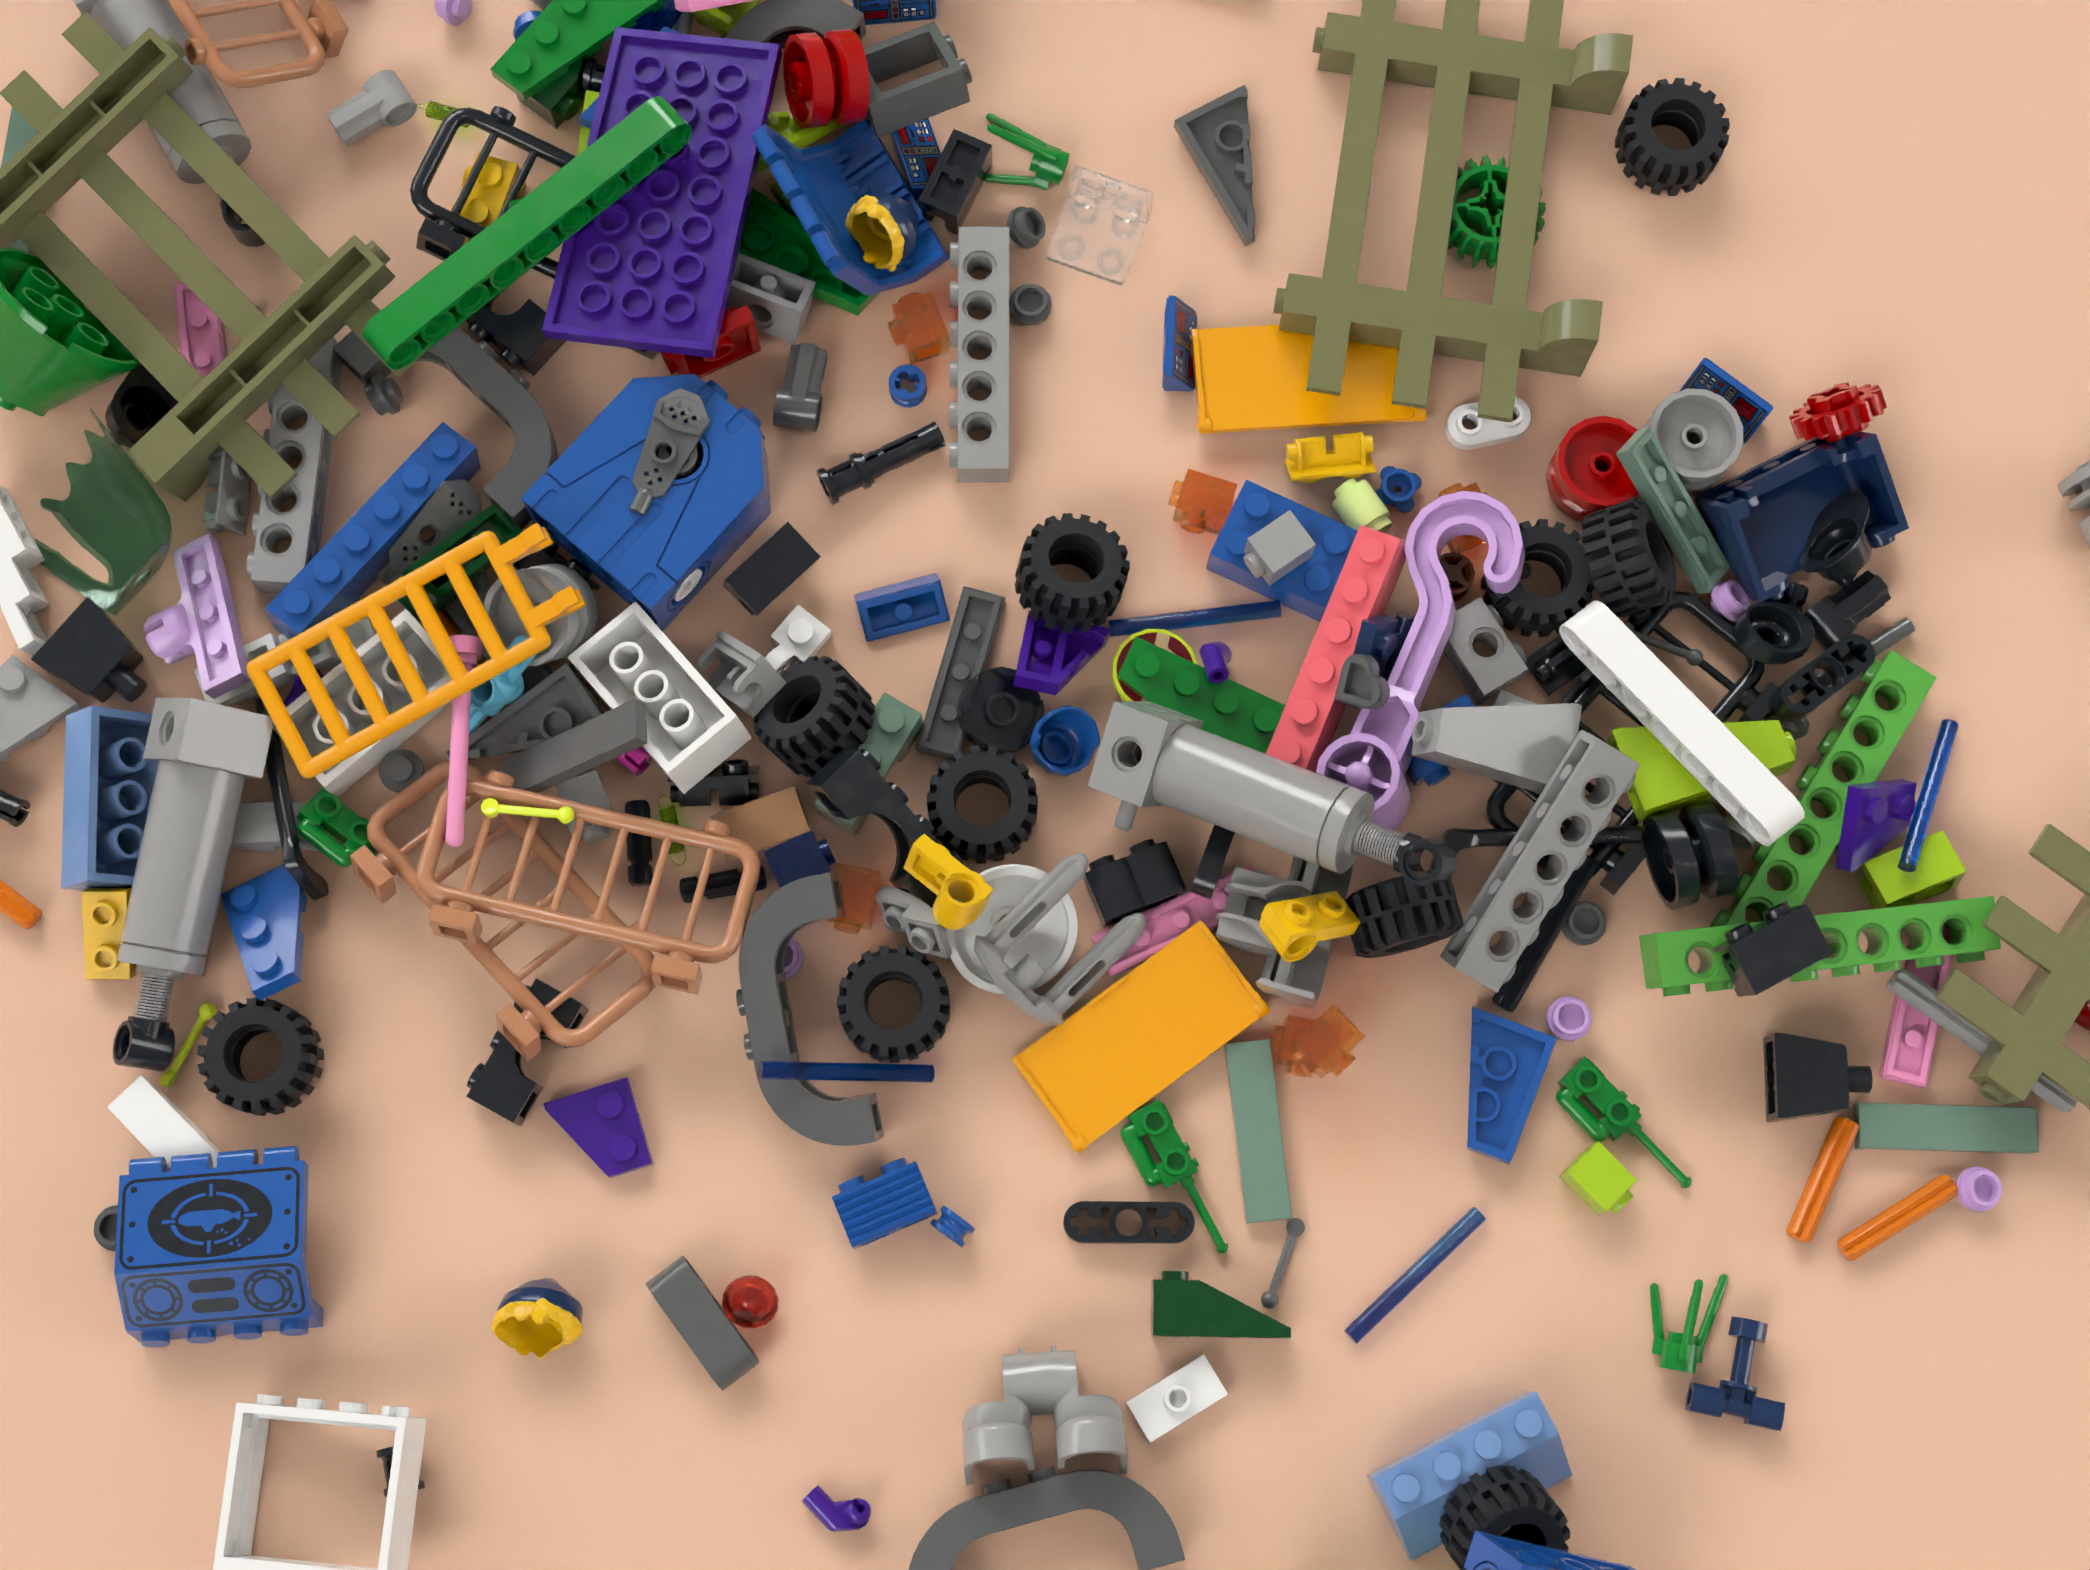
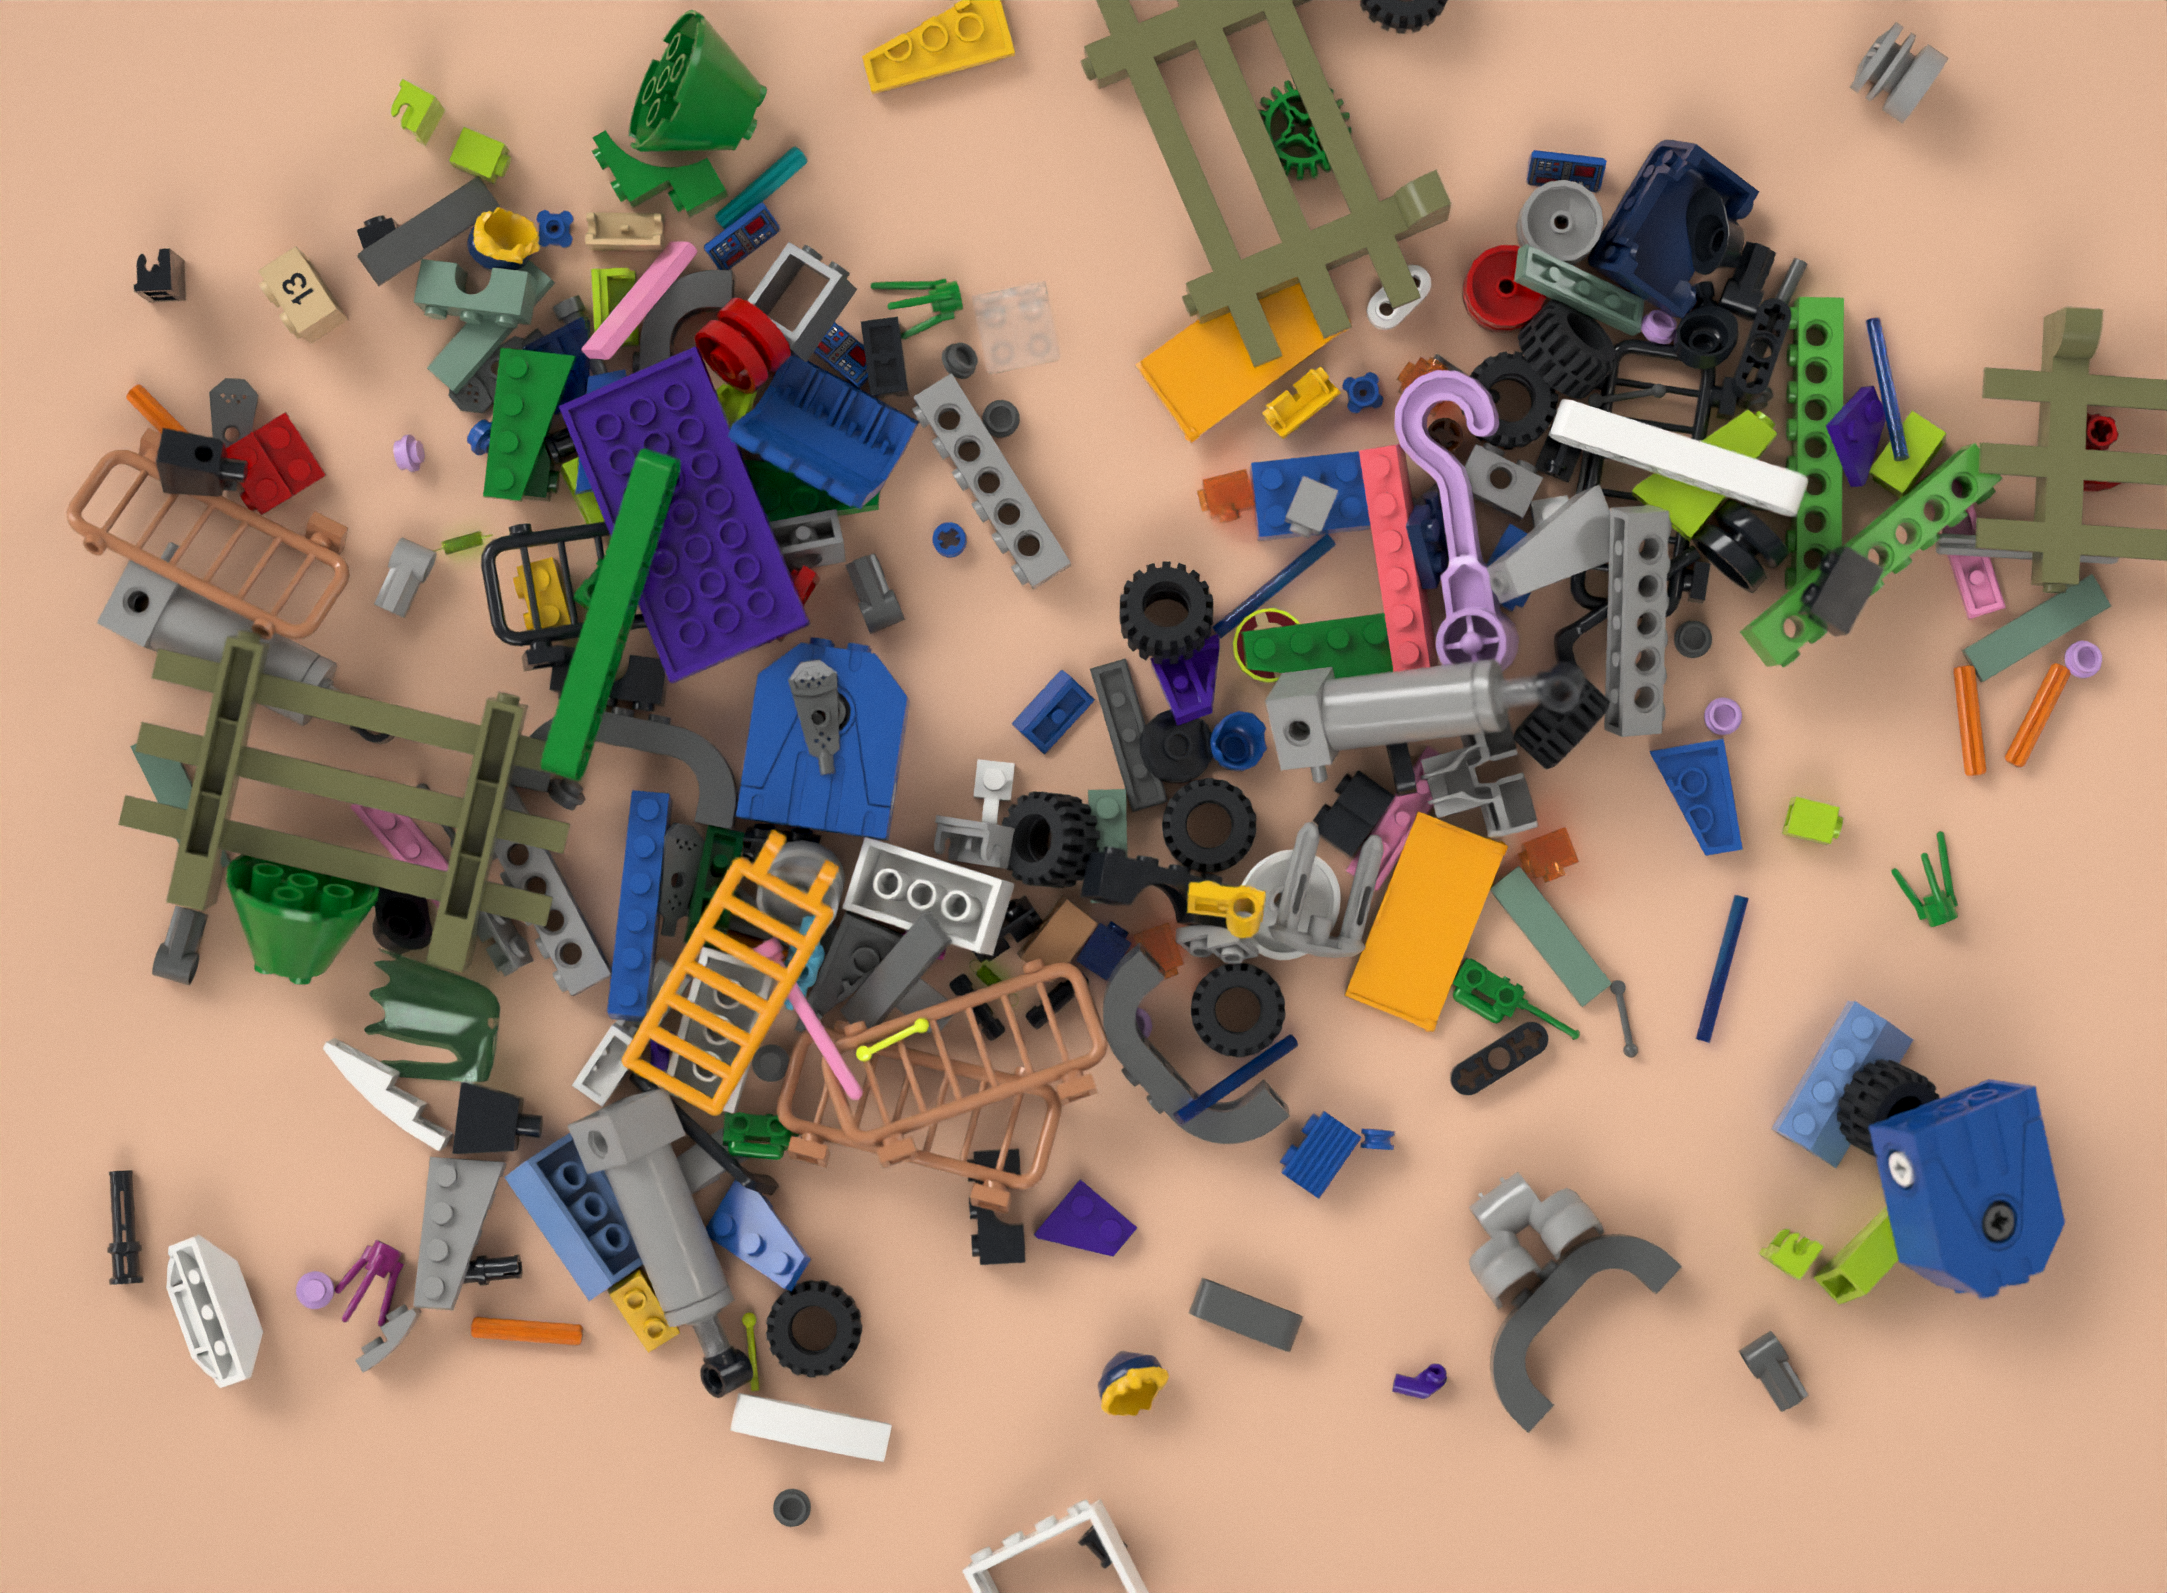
camera: 25 degrees left, 10 degrees up
(202, 620) = (555, 1045): lavender plate -> none
(214, 1247) = (875, 1475): hinge -> none
(750, 1301) = (1269, 1279): clear red hat -> none
(771, 569) = (942, 746): black hinge -> none
(863, 469) = (959, 627): black pin -> none
(883, 228) = (862, 436): yellow hair -> none
(919, 327) = (930, 490): clear orange brick -> none
(1176, 1398) = (1607, 1159): white plate -> none
(1177, 346) = (1136, 390): blue slope -> none
(1198, 1310) = (1585, 1090): dark green slope -> none
(1214, 658) = (1308, 610): dark purple arm -> none
(1220, 147) = (1065, 202): dark grey wing -> none
(1301, 922) = (1497, 773): yellow plate -> none
(1327, 1044) = (1565, 849): clear orange brick -> none
(1360, 505) = (1347, 427): yellowish green brick -> none
(1361, 683) = (1433, 572): dark grey tile -> none
(1550, 927) = (1672, 661): black axle -> none
(1616, 1111) = (1795, 762): green piece -> none
(1736, 1396) = (1996, 913): dark blue bar -> none
(1809, 1077) = (1919, 654): black torso -> none
(1838, 412) = (1656, 133): red gear -> none

